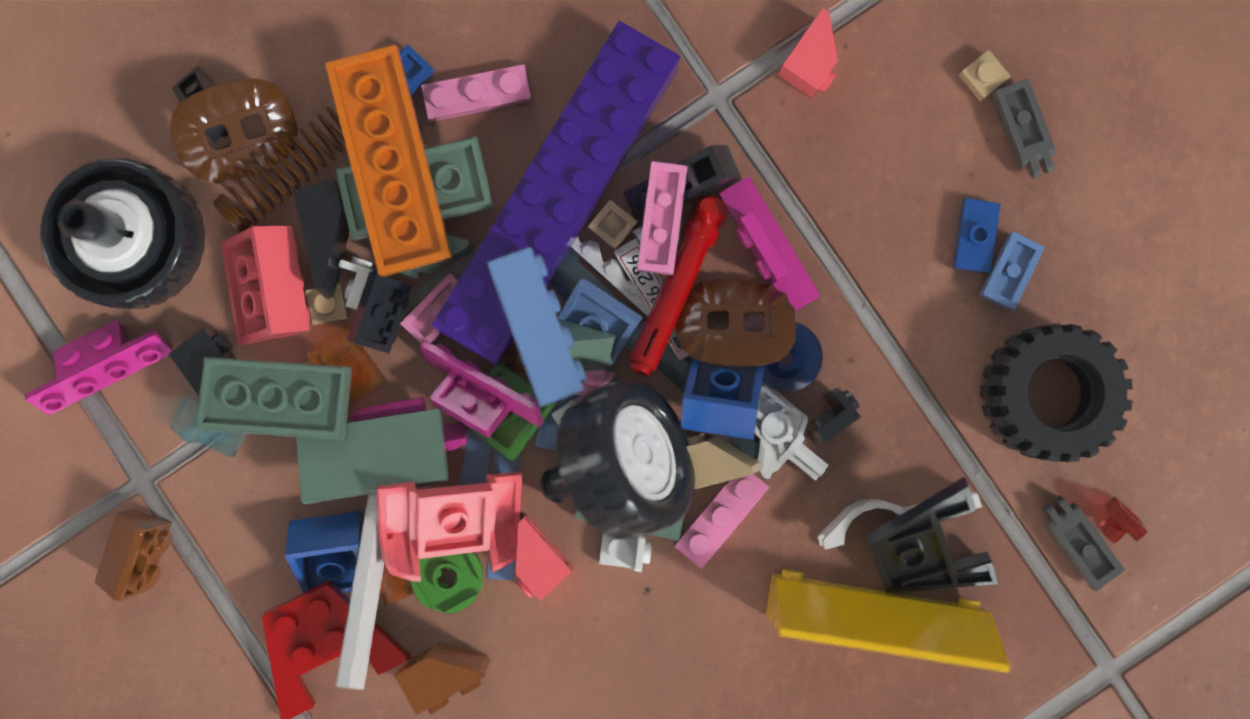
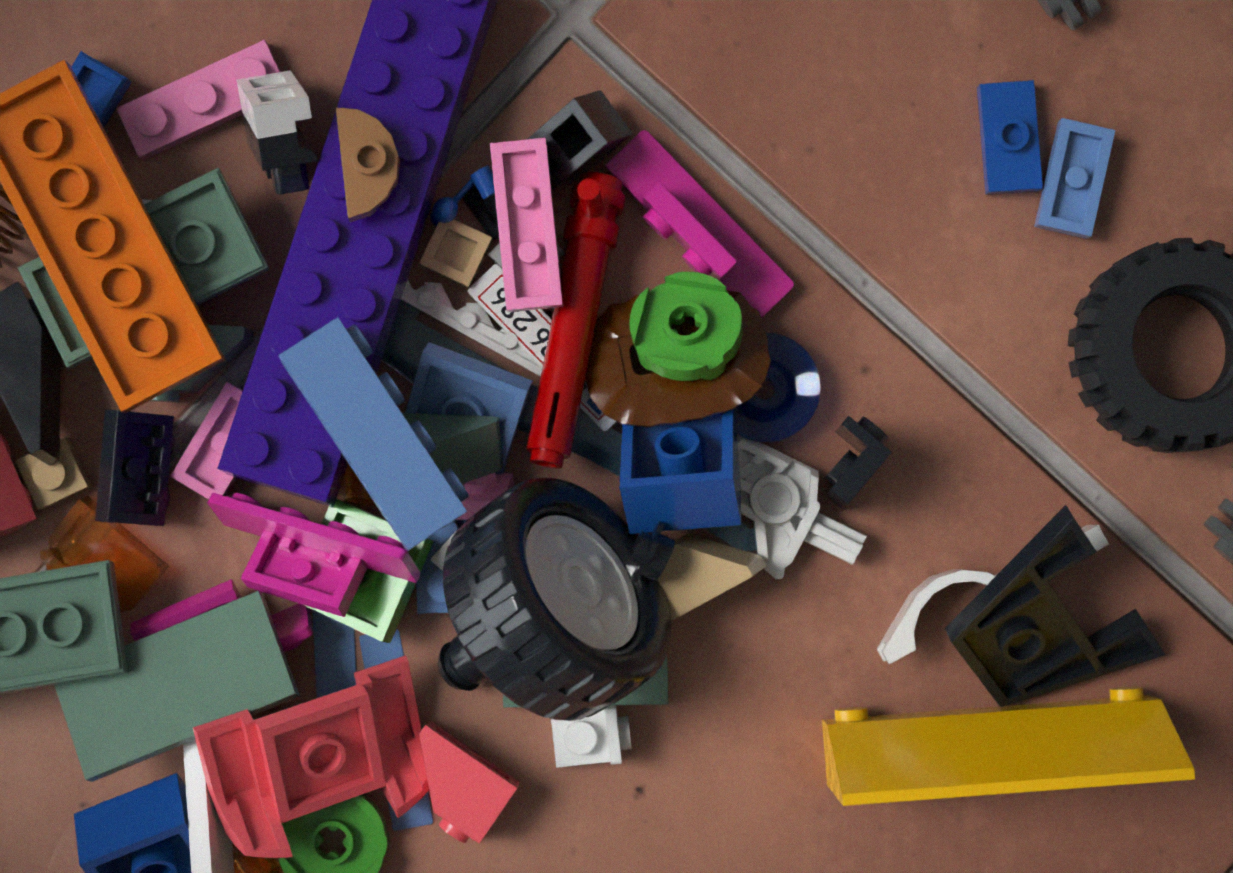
camera: 10 degrees left, 0 degrees up
(355, 286) = (88, 436): white bracket -> none
(515, 125) = (269, 114): none -> hips
(572, 154) = (367, 160): none -> medium nougat plate
(613, 196) = (446, 208): none -> blue piece
(692, 444) = (650, 554): none -> black plate
(720, 518) = (724, 654): bright pink plate -> none
(744, 325) = (693, 355): none -> bright green plate

